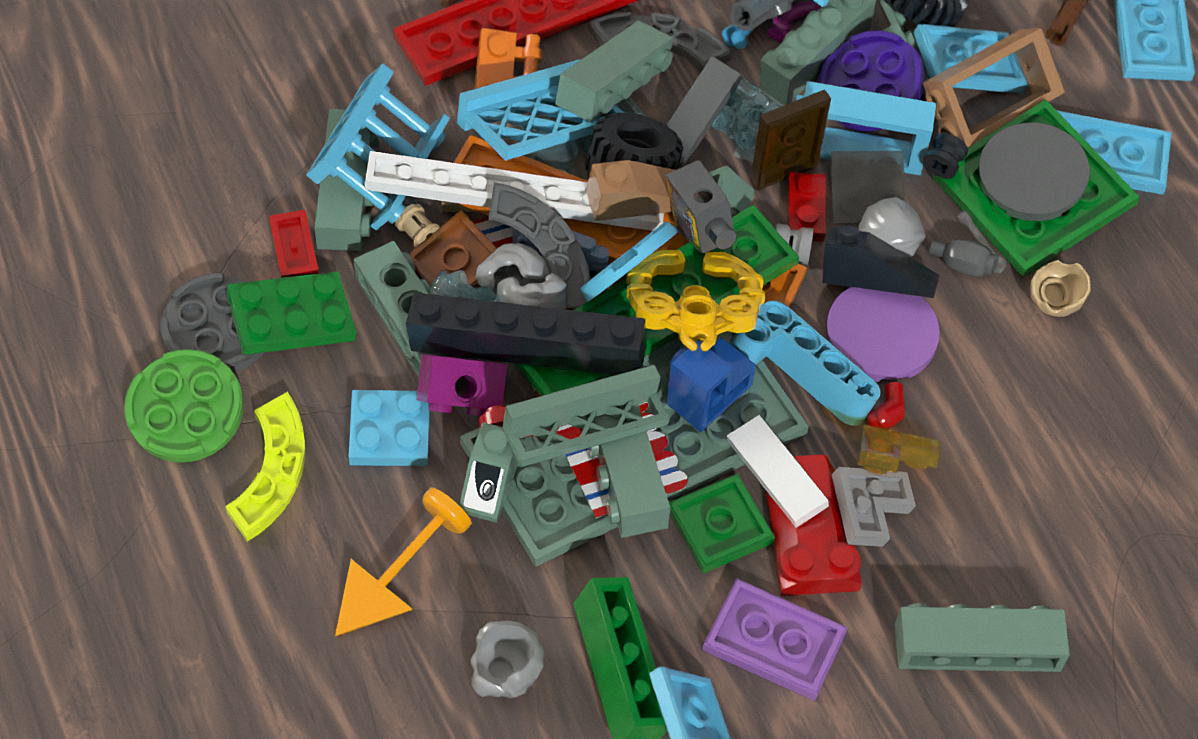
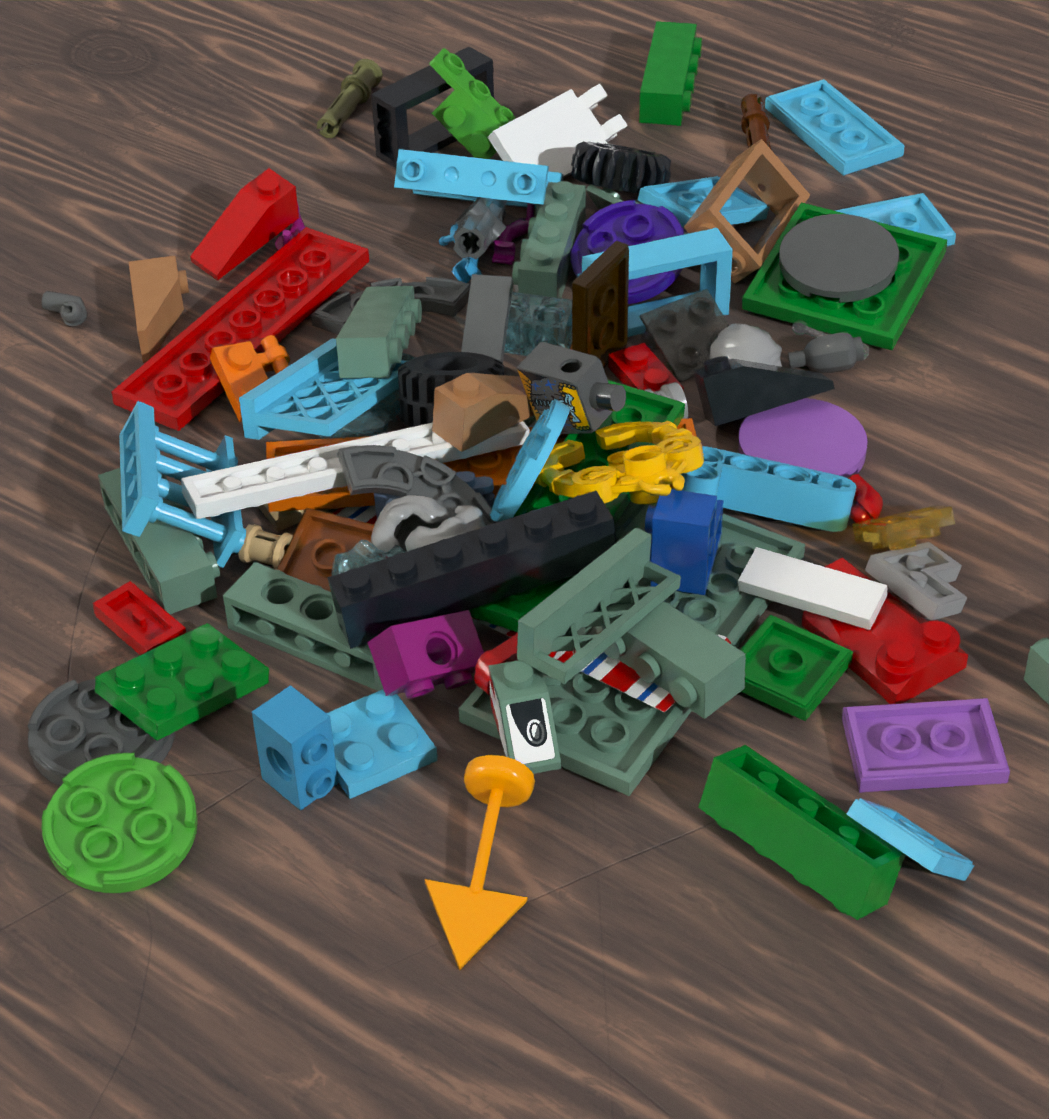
camera: 25 degrees left, 15 degrees down
(280, 471) = (276, 836): neon yellow tile -> none
(323, 413) = (295, 747): none -> dark azure brick
(506, 659) = (675, 888): light grey hair -> none
(945, 155) = (751, 275): black wheel -> none
(1060, 288) = (938, 339): tan hair -> none

